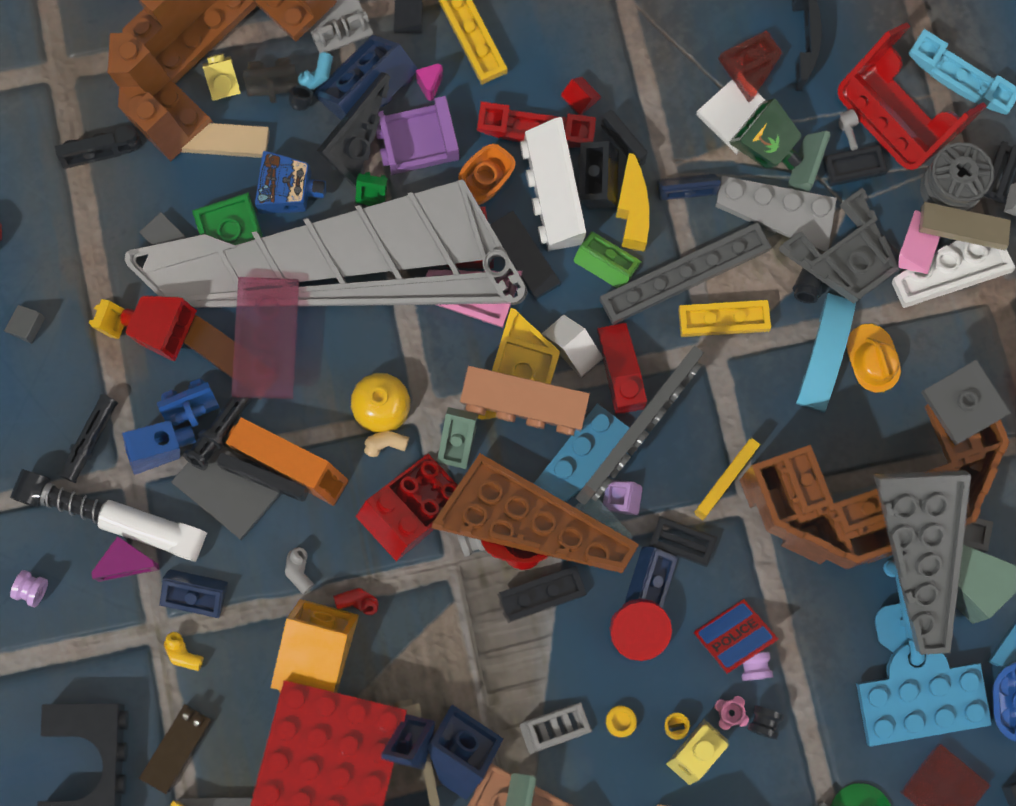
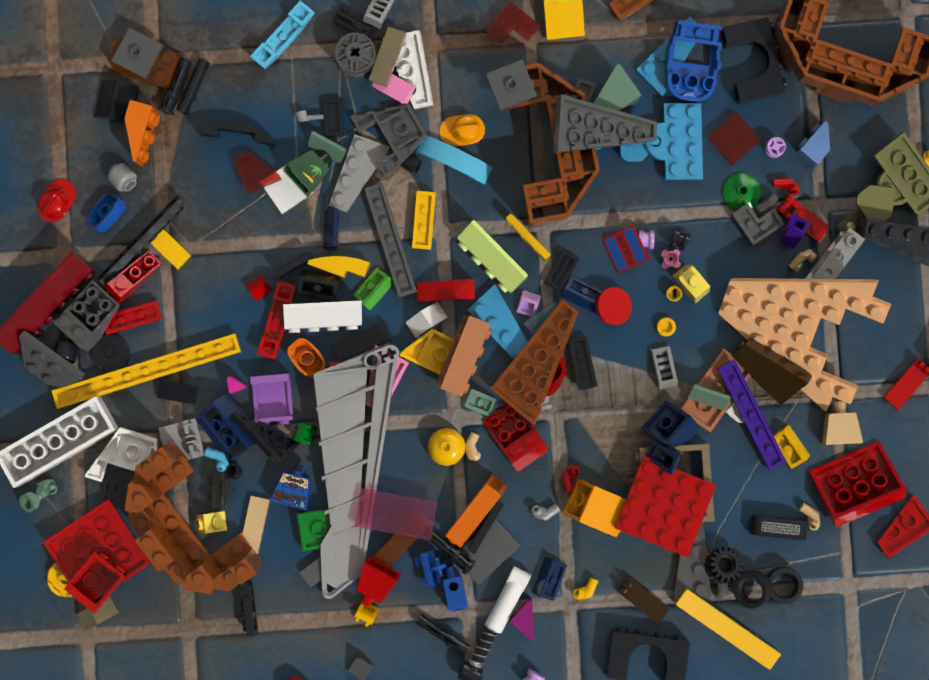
camera: 75 degrees left, 10 degrees up
(636, 434) = (496, 291): dark grey plate -> none
(685, 427) = (492, 257): none -> yellowish green slope
(891, 112) = (303, 85): red windscreen -> none

